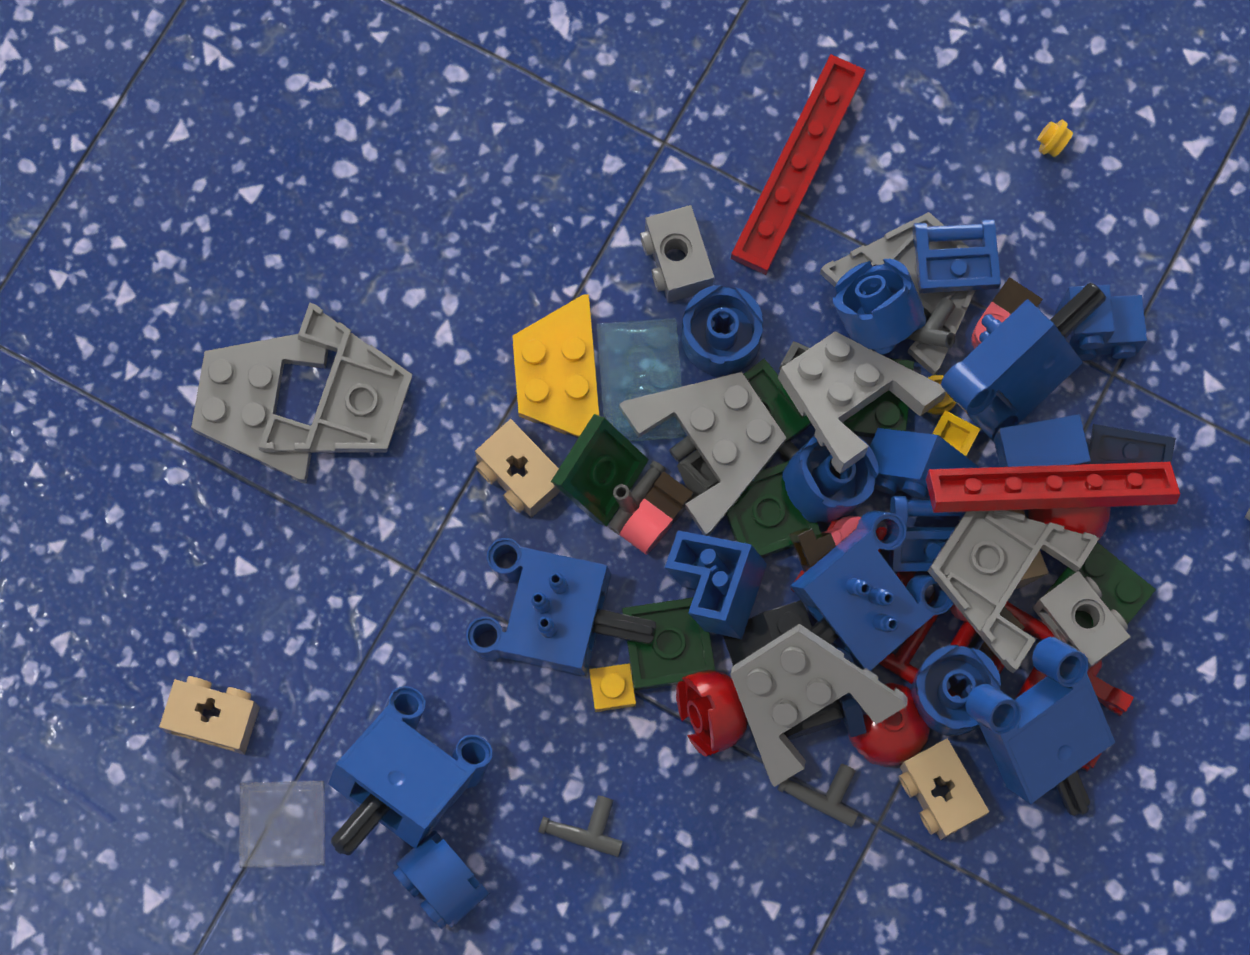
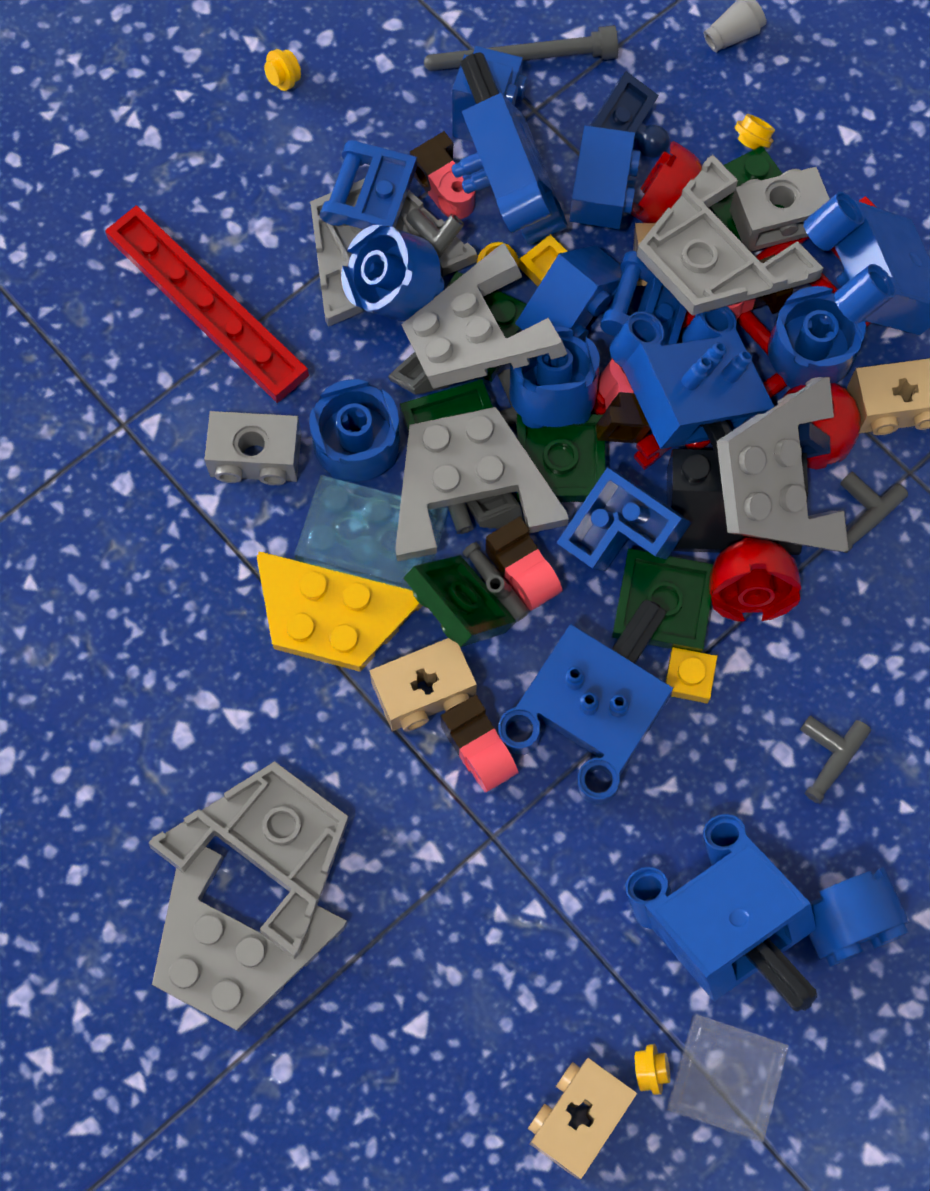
camera: 70 degrees left, 5 degrees down
(266, 759) = (652, 1069): none -> yellow plate
(492, 521) = (478, 744): none -> leg
(1052, 487) = (650, 174): red plate -> none
(1167, 578) = (754, 132): none -> yellow plate
(1204, 408) = (599, 43): none -> dark grey piece

